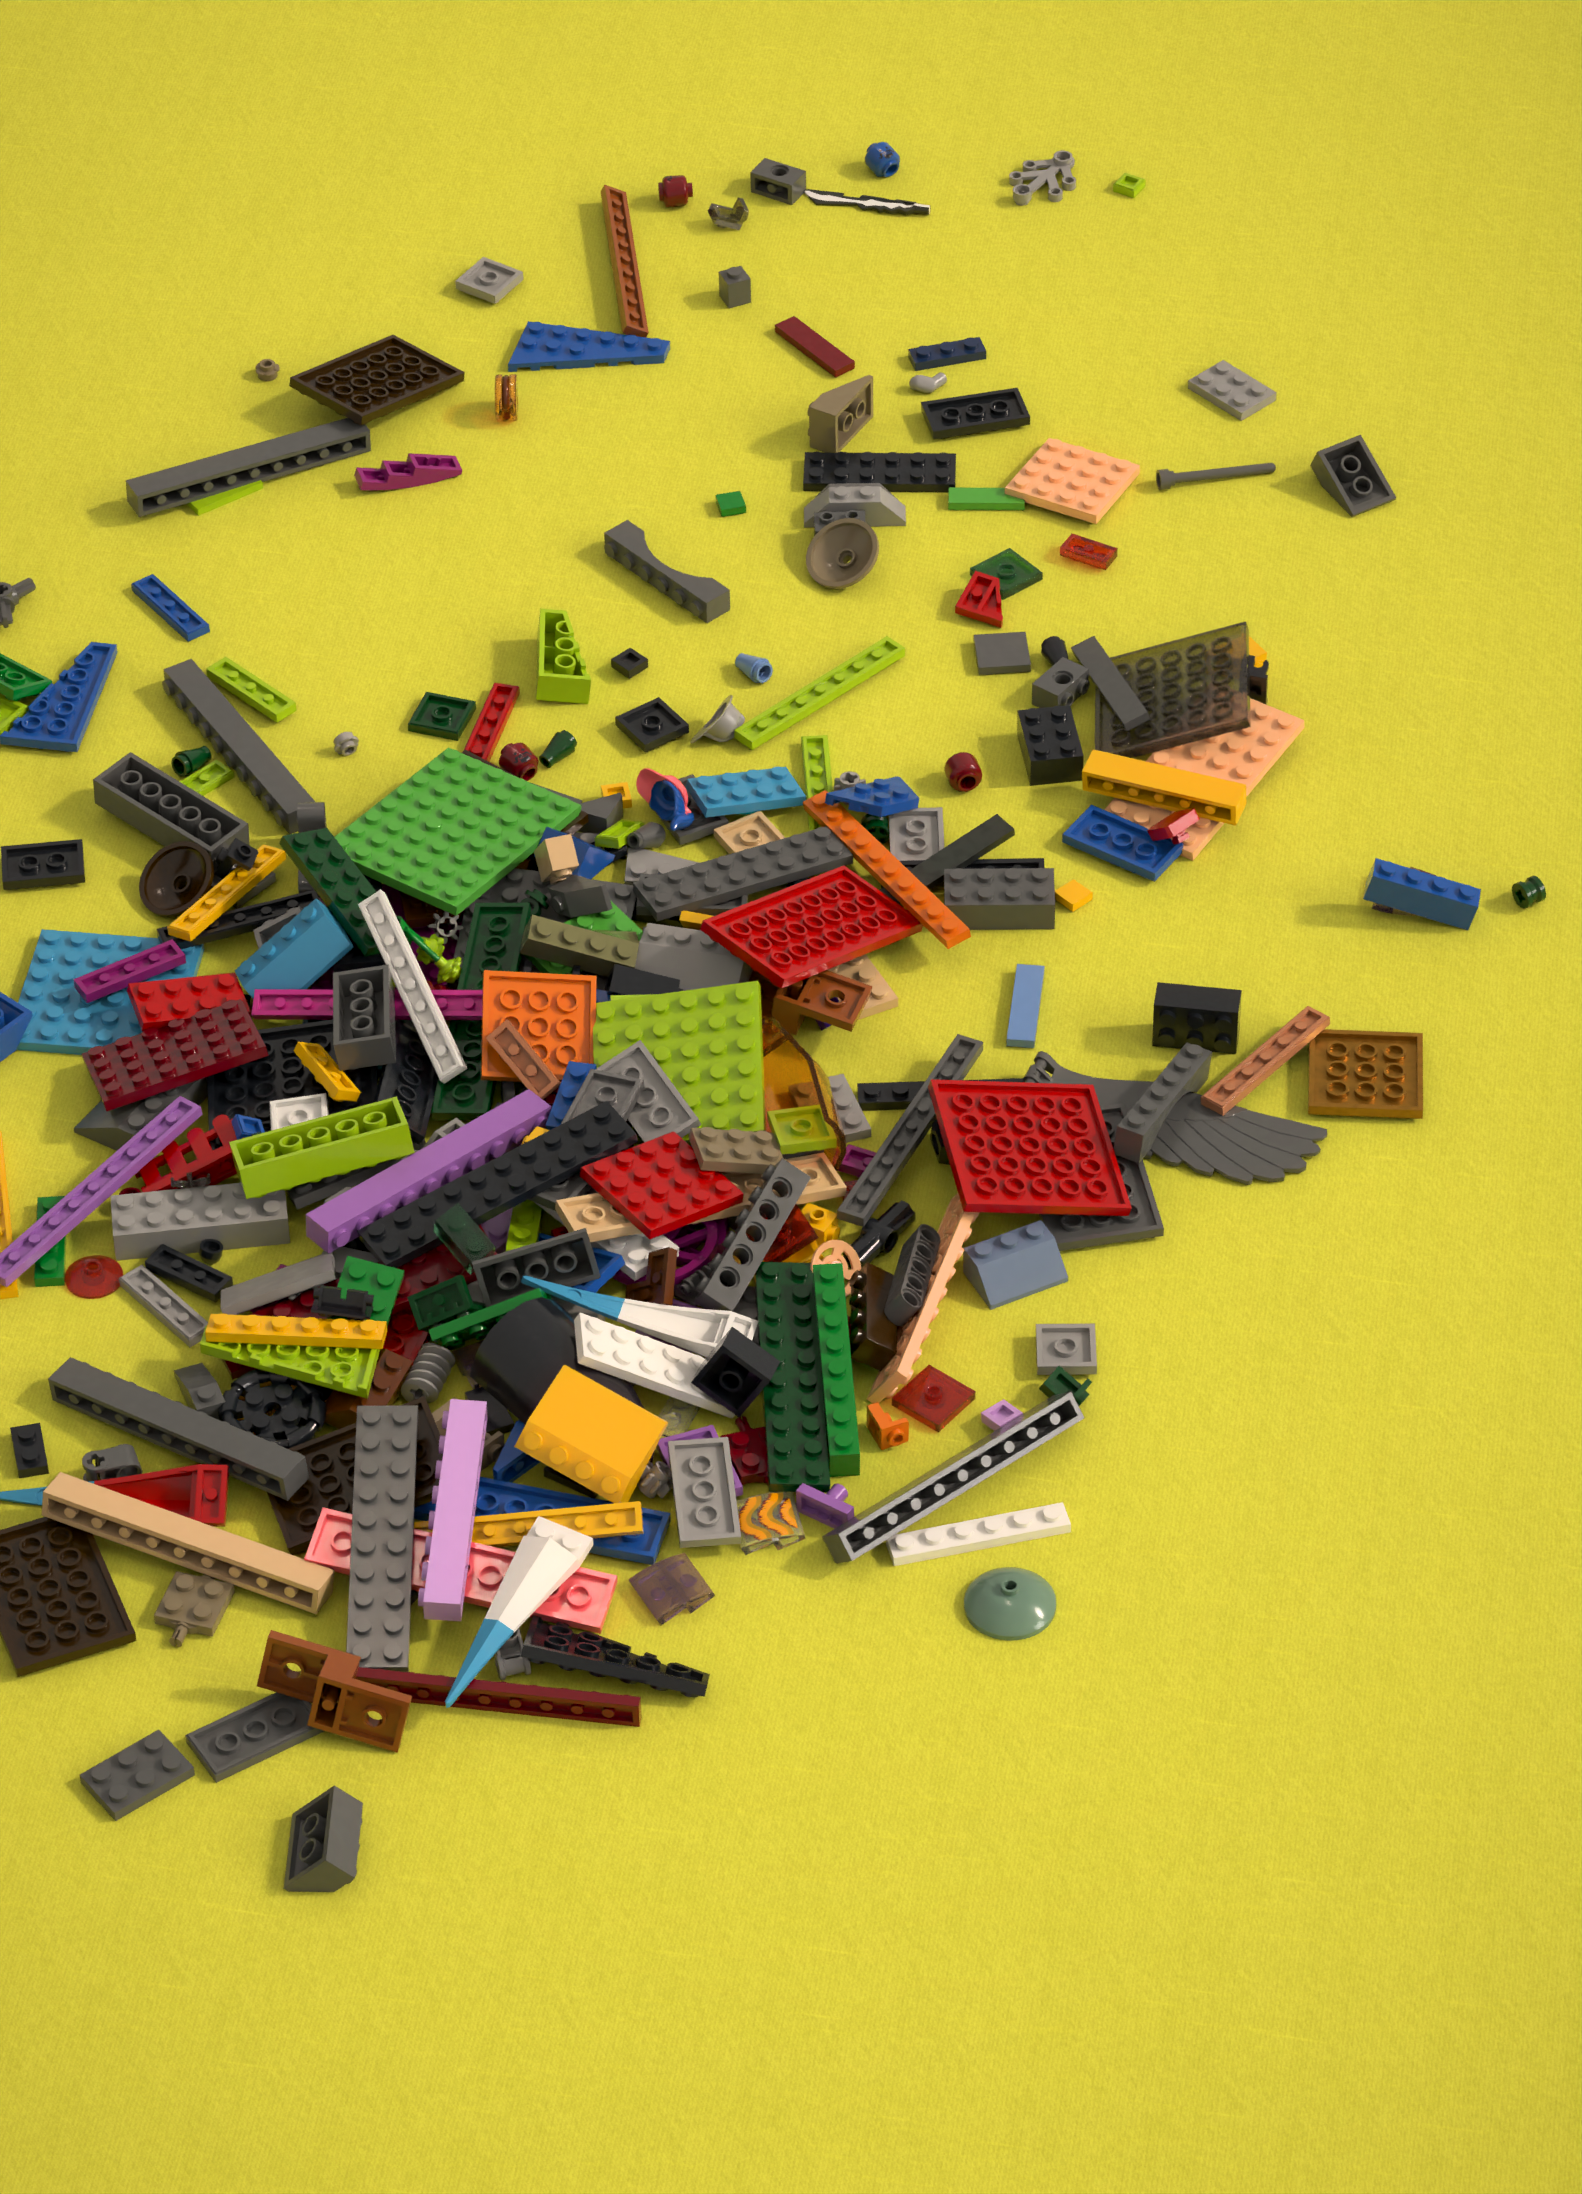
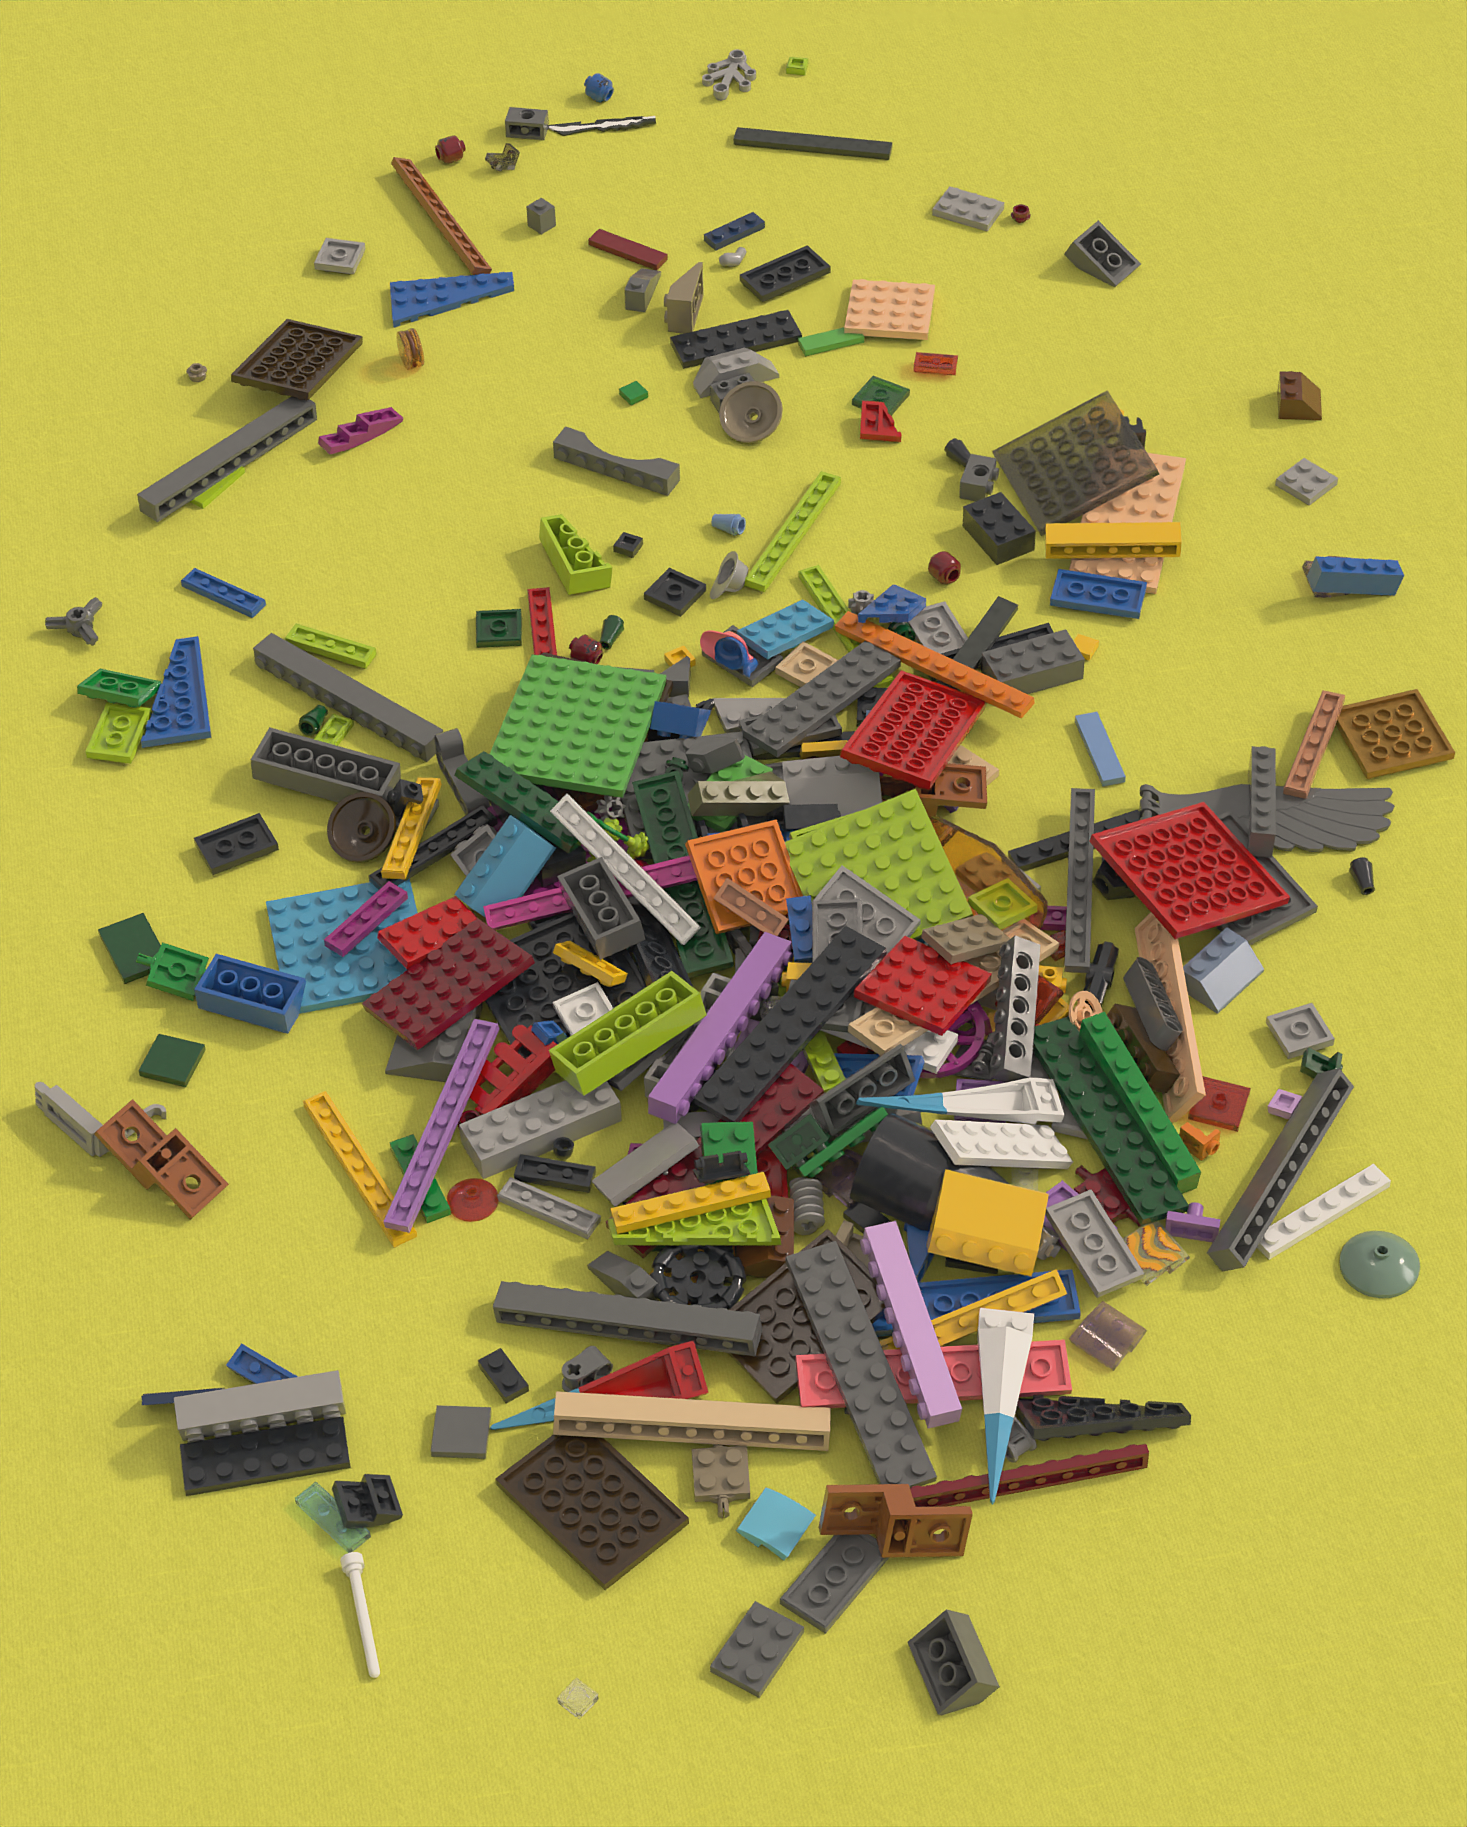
camera: 20 degrees left, 5 degrees up
(190, 1182) = (530, 1090): clear smoke piece -> none
(222, 1665) = (775, 1523): none -> medium azure slope
(346, 743) = (434, 672): light grey plate -> none
(463, 1237) = (793, 1080): clear green brick -> none
(556, 858) = (681, 727): tan brick -> none
(617, 834) = (702, 691): lime tile -> none
(648, 836) = (725, 686): dark grey cone -> none
(660, 1279) = (960, 1067): reddish brown plate -> none
(735, 1372) = (1069, 1131): black brick -> none
(800, 390) = (641, 289): none -> dark grey slope
(1002, 653) = (914, 462): dark grey tile -> none
(1095, 276) = (813, 143): none -> pearl dark grey tile
(1110, 683) = (1019, 466): dark grey tile -> none
(1167, 478) = (961, 290): dark grey piece -> none
(1174, 826) = (1138, 569): red piece -> none
(1197, 1017) = (1245, 723): black brick -> none
(1237, 1207) = (1362, 872): none -> black cone
(1288, 409) = (1020, 213): none -> dark red plate
(1441, 782) = (1306, 481): none -> light grey plate
(1486, 687) = (1298, 397): none -> reddish brown slope
(1528, 892) = (1426, 552): dark green wheel -> none

